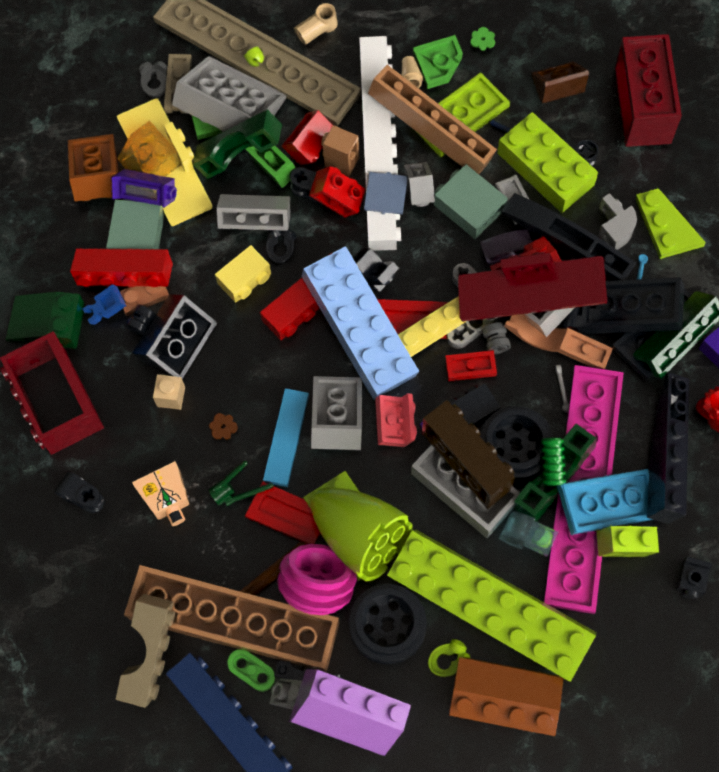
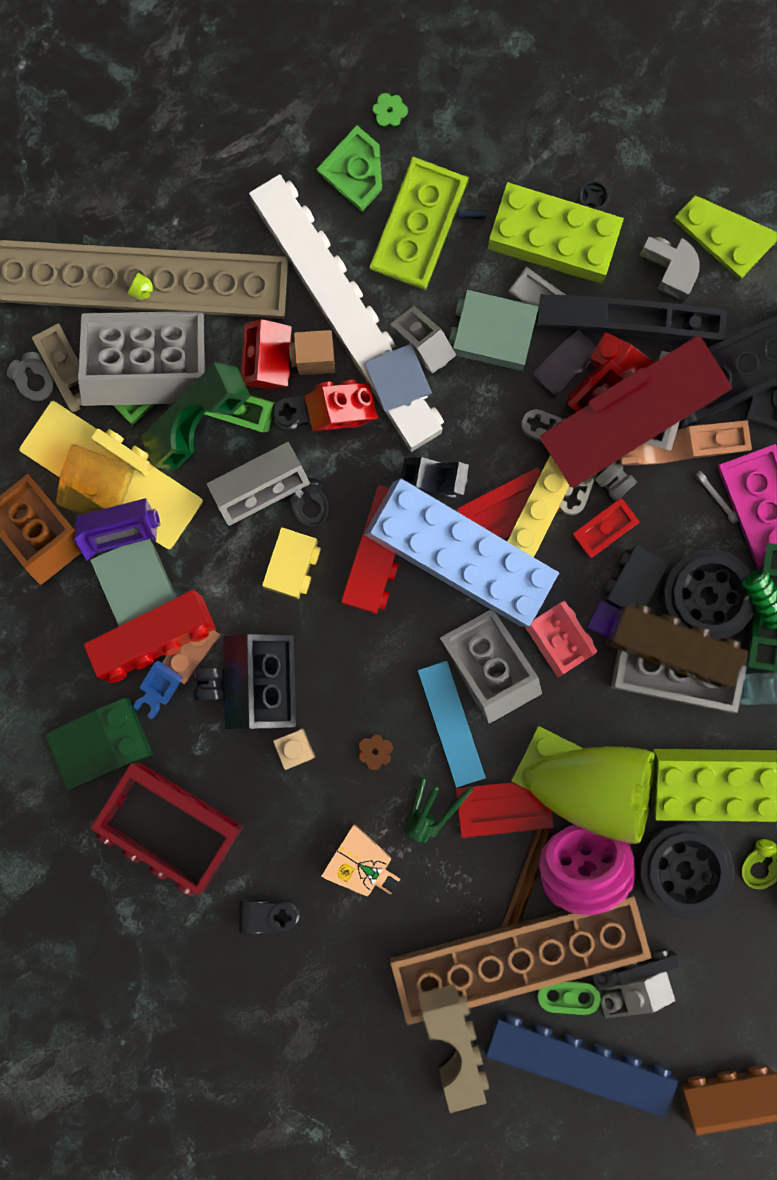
camera: 35 degrees left, 15 degrees up
(316, 25) = (183, 202): tan piece -> none
(349, 712) = (700, 985): medium lavender slope -> none
(411, 71) = (332, 203): tan cone -> none
(431, 120) = (399, 259): medium nougat brick -> none
(560, 81) = (509, 116): reddish brown slope -> none
(642, 260) = (722, 292): dark azure hinge -> none
(647, 90) = (625, 82): dark red hose -> none

